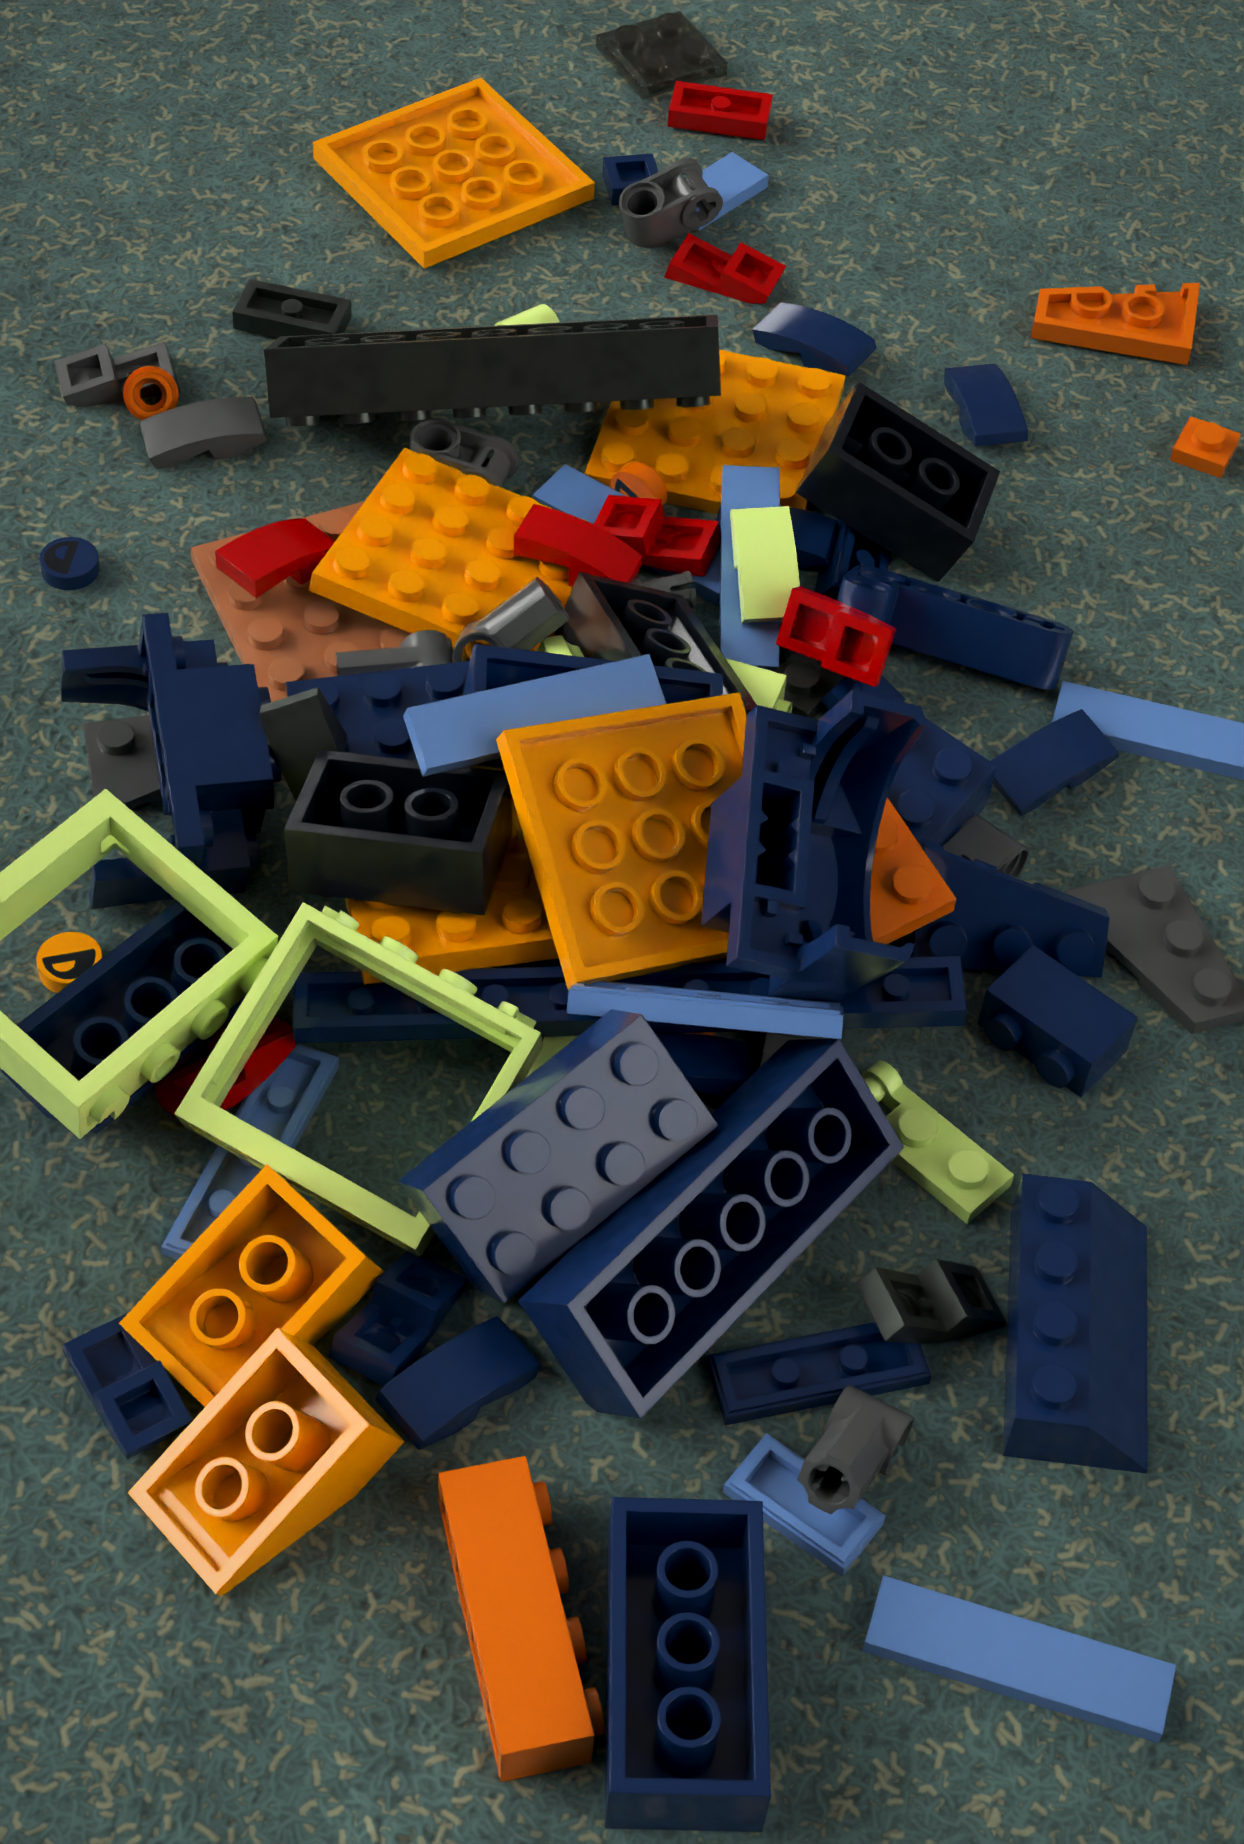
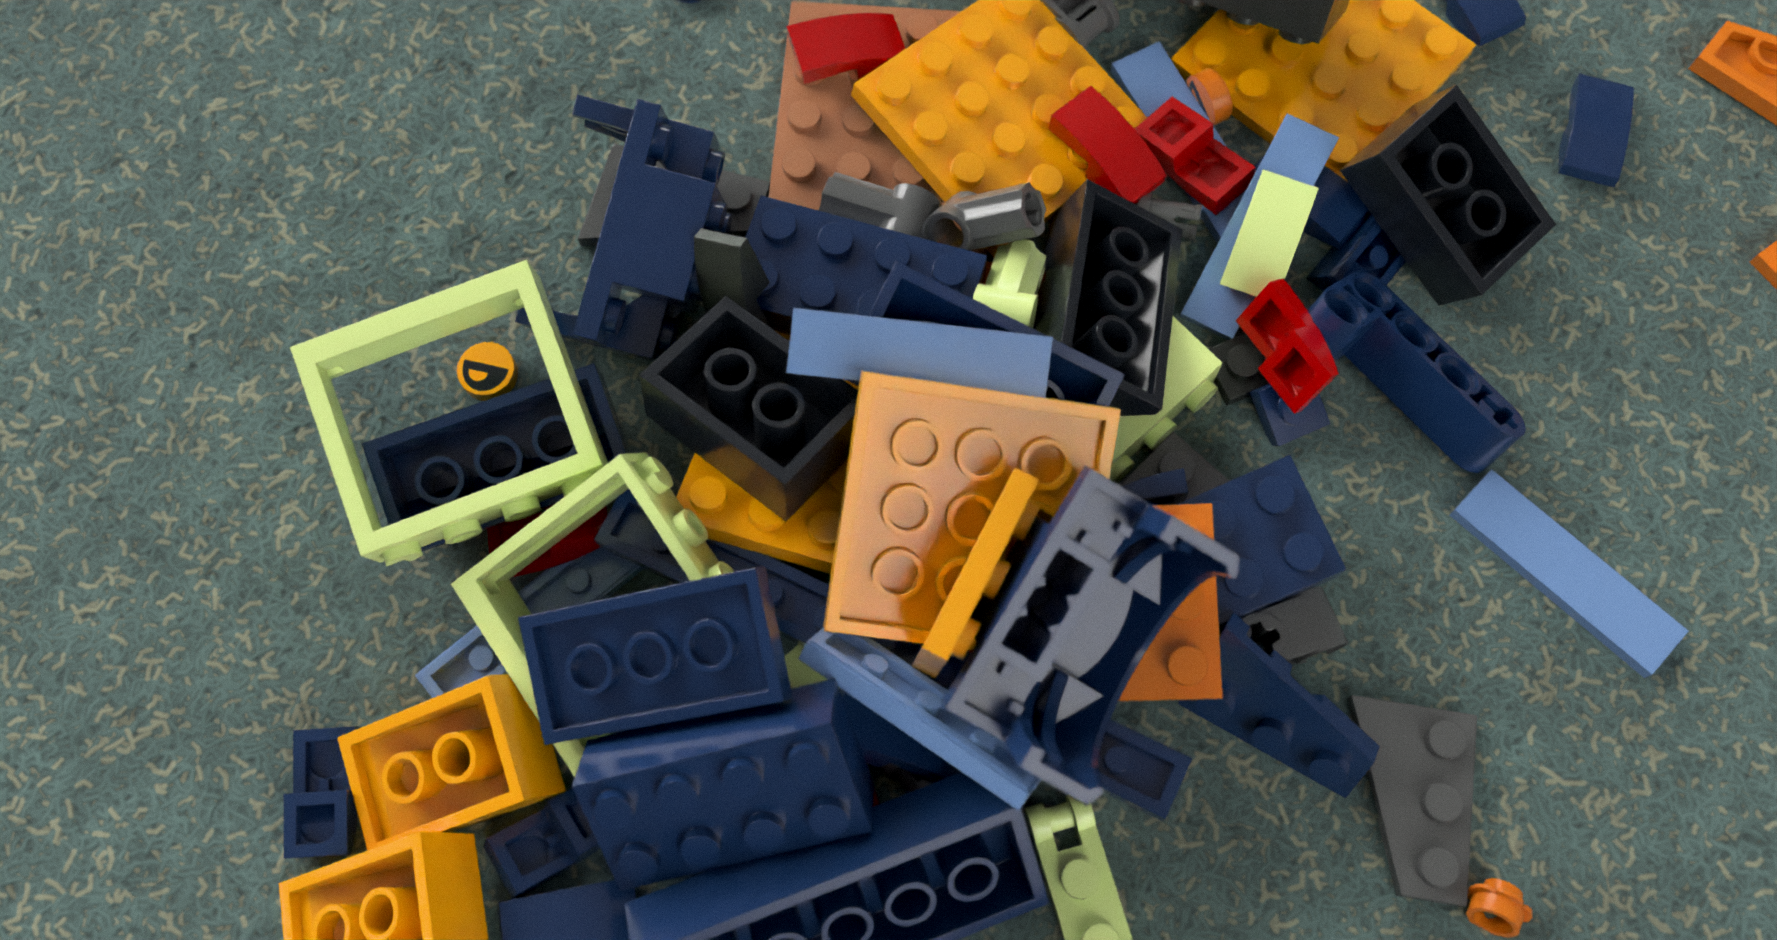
camera: 35 degrees right, 20 degrees up
(429, 1063) = (656, 656): none -> dark blue plate
(698, 855) = (980, 575): none -> light orange wing
(1050, 760) = (1428, 553): dark blue slope -> none
(1056, 1021) = (1268, 834): dark blue brick -> none

